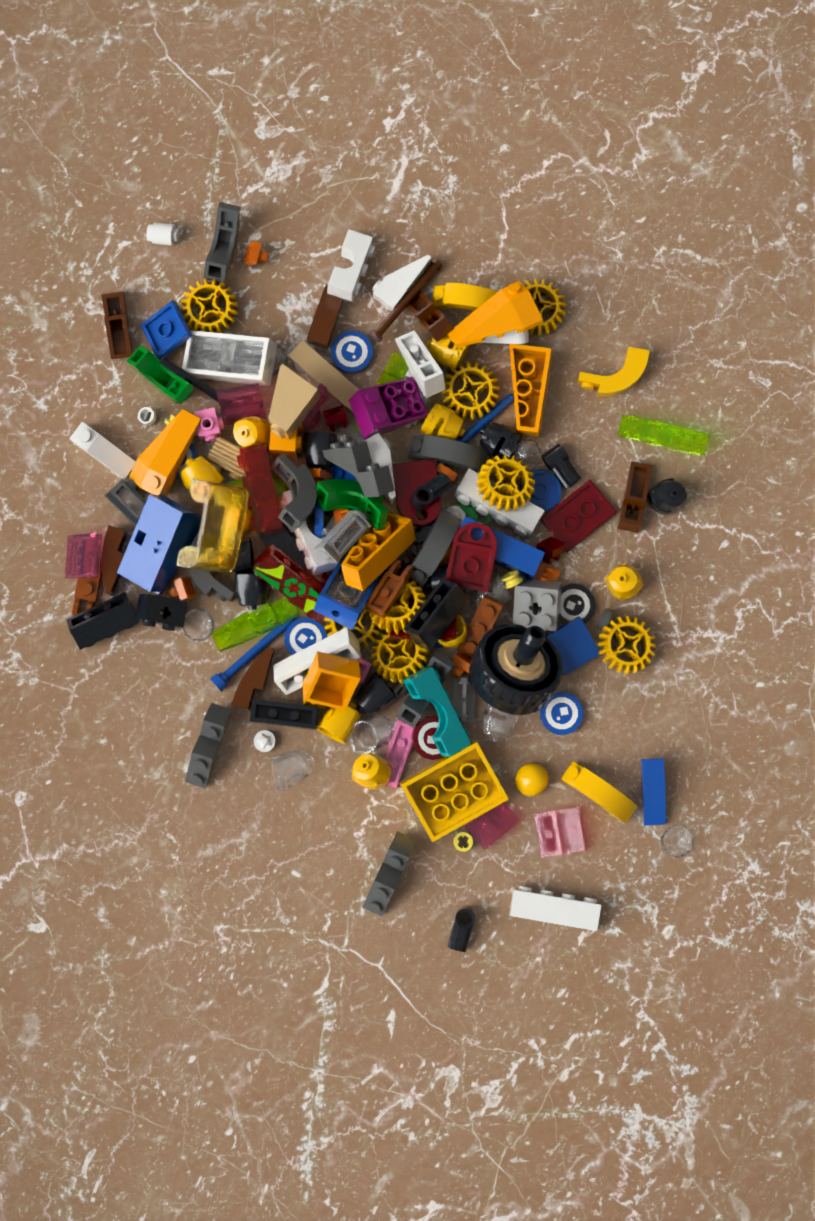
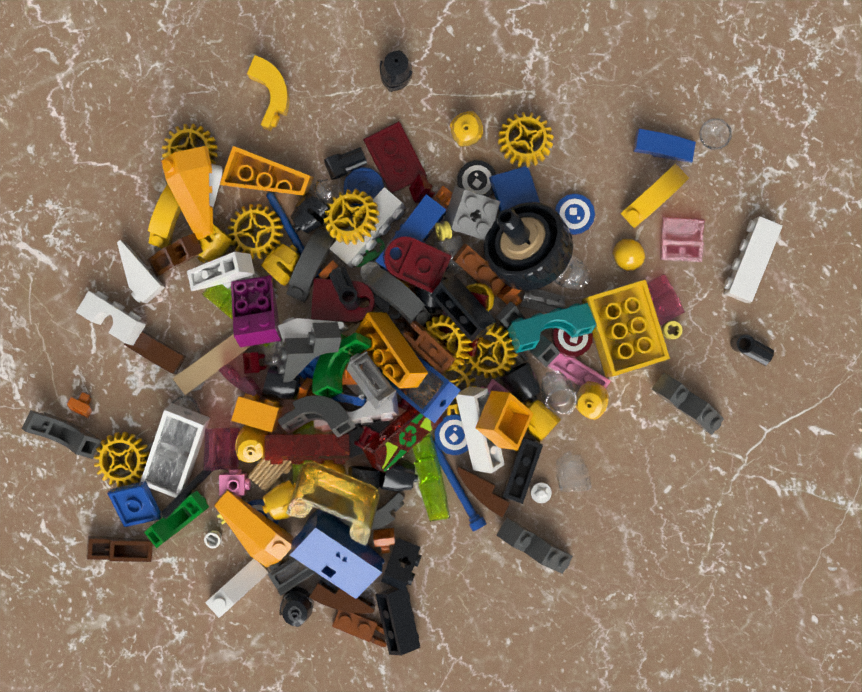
camera: 80 degrees left, 5 degrees up
(83, 556) = (333, 626): clear pink slope -> none
(96, 515) = (296, 606): none -> black helmet
(162, 233) = (41, 488): white brick -> none
(198, 625) = (421, 531): clear hair -> none
(289, 545) = (367, 432): none -> dark red bush
(291, 402) = (231, 402): tan slope -> none
(351, 352) = (194, 334): blue tile -> none
(435, 266) = (129, 238): reddish brown bar -> none
(605, 618) = (496, 154): dark grey tile -> none
(635, 497) = (389, 101): reddish brown slope -> none
(664, 435) = (337, 61): clear neon green slope -> none

